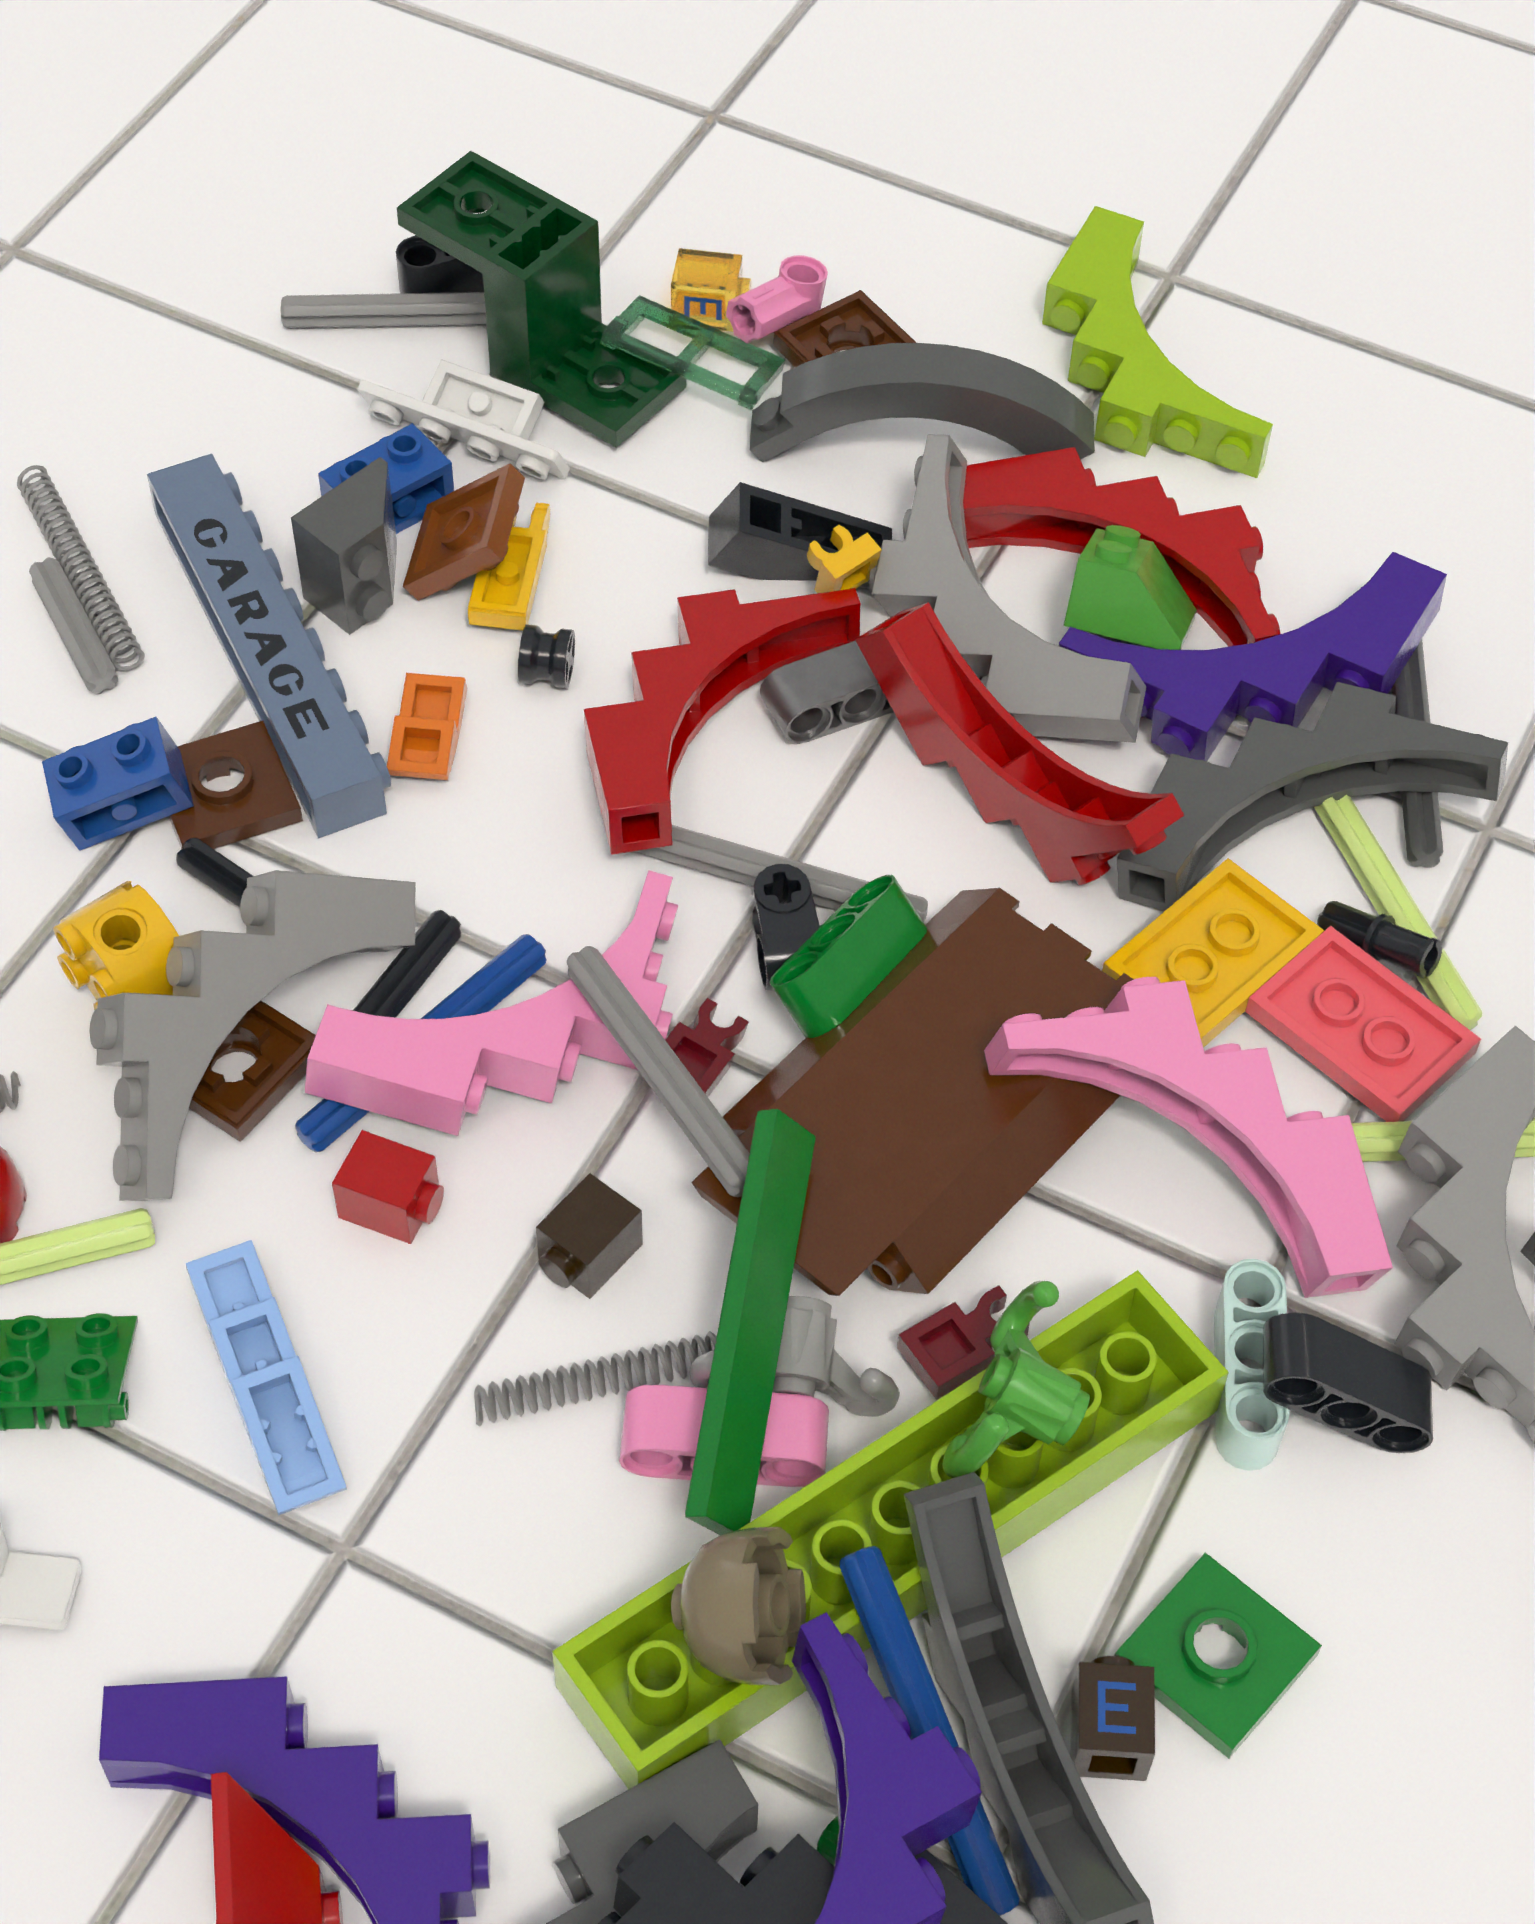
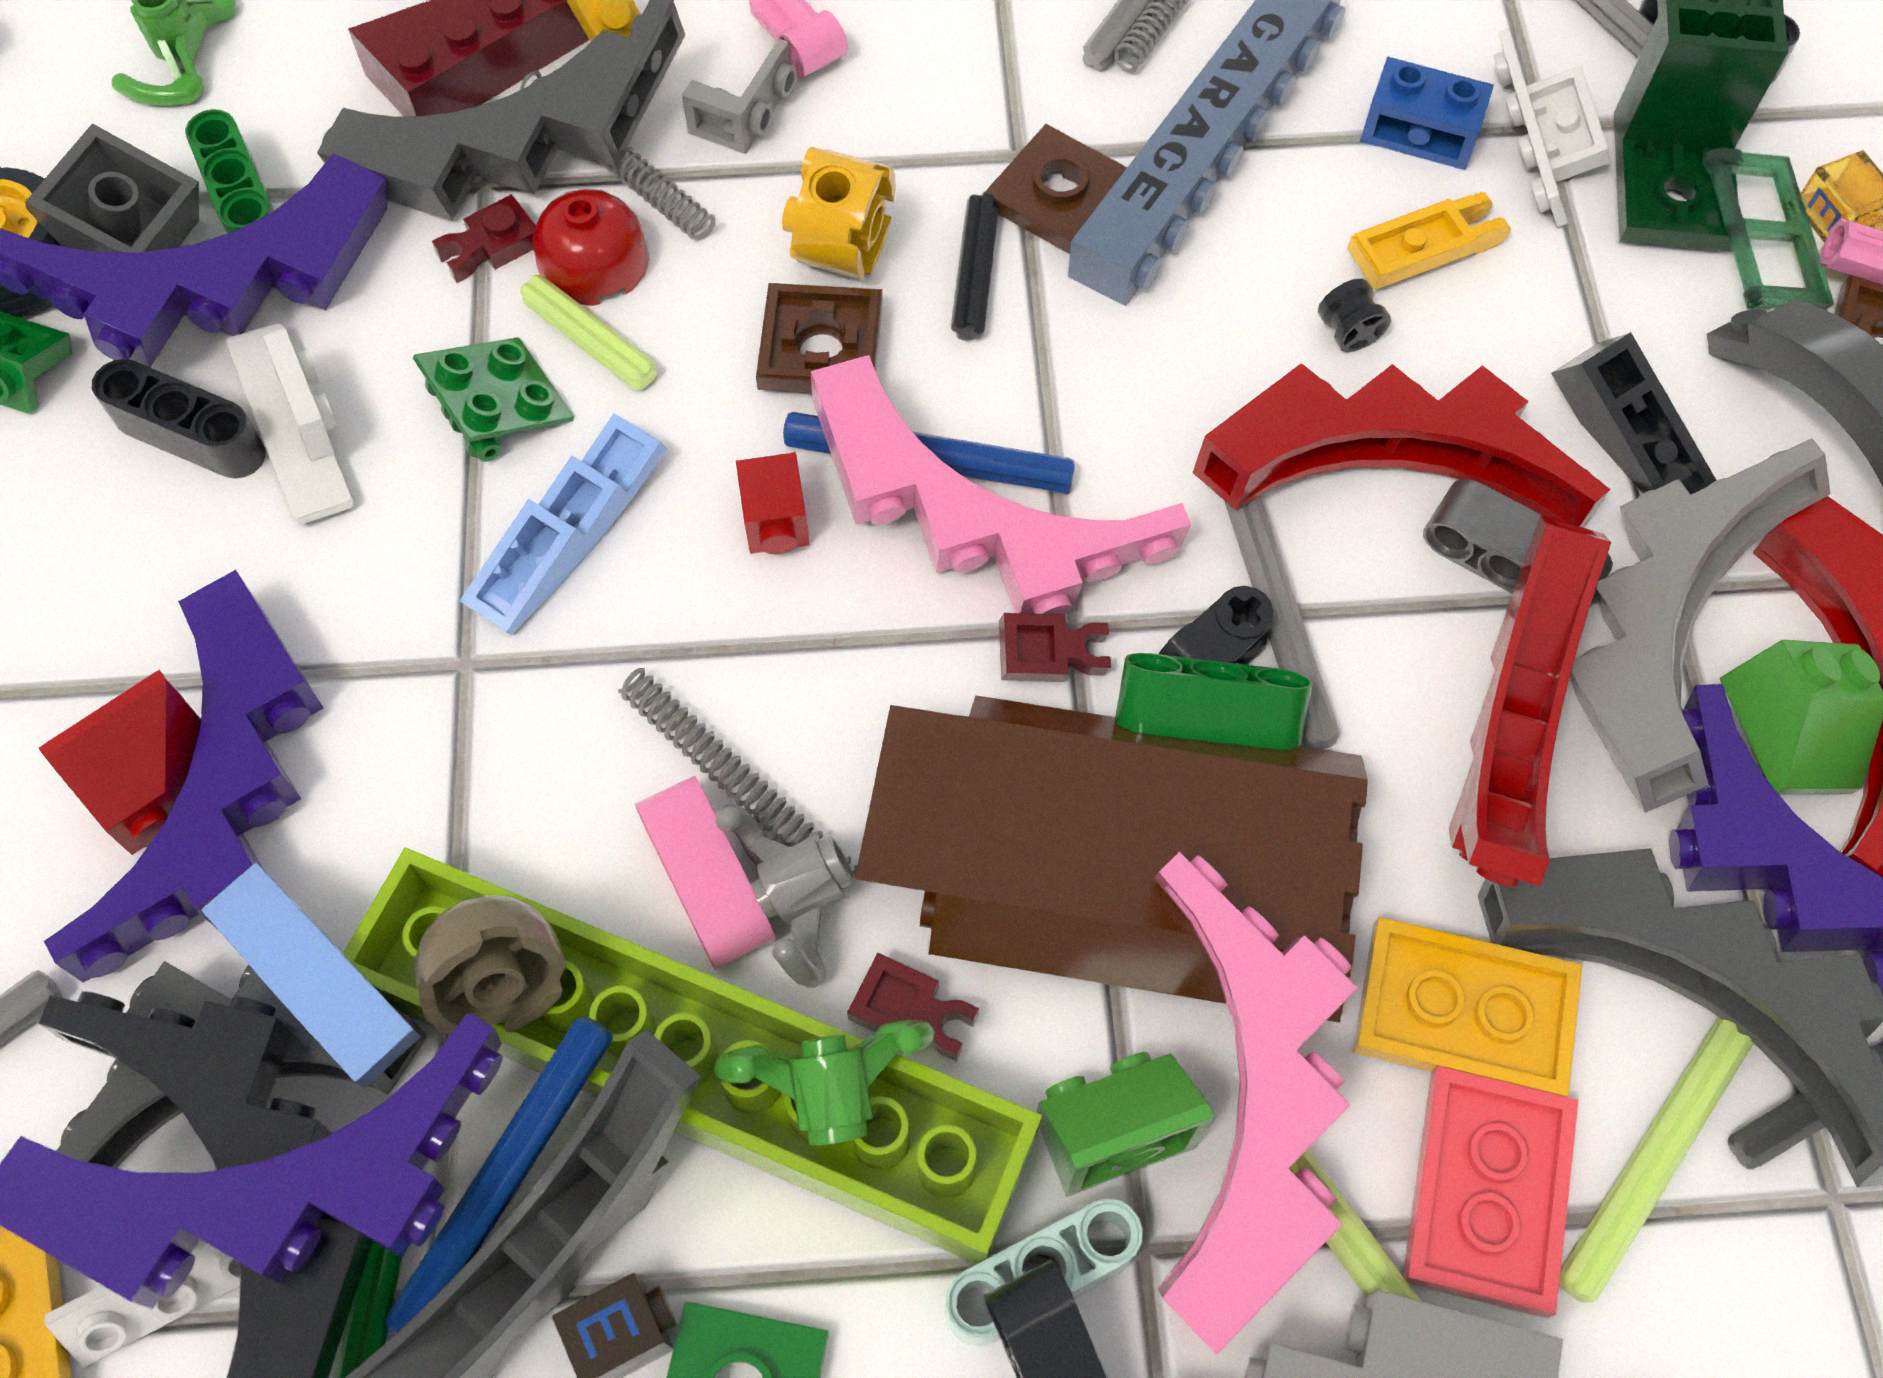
camera: 60 degrees right, 10 degrees up
(117, 783) = (997, 117): blue brick -> none
(215, 980) = (774, 276): light grey arch -> none
(349, 548) = (1340, 120): dark grey slope -> none
(411, 966) = (972, 404): black axle -> none
(427, 726) = (1221, 284): orange slope -> none
(464, 532) = (1423, 185): dark orange plate -> none
(588, 1236) = (819, 667): dark brown brick -> none
(628, 1789) = (310, 976): none -> light blue slope
(661, 1068) = (975, 624): light grey axle -> none
(751, 1325) = (776, 822): green tile -> none
(848, 566) = (1631, 471): yellow tile -> none
(1167, 1222) = (1121, 1121): none -> bright green slope
(1383, 938) = (1602, 1157): black axle -> none

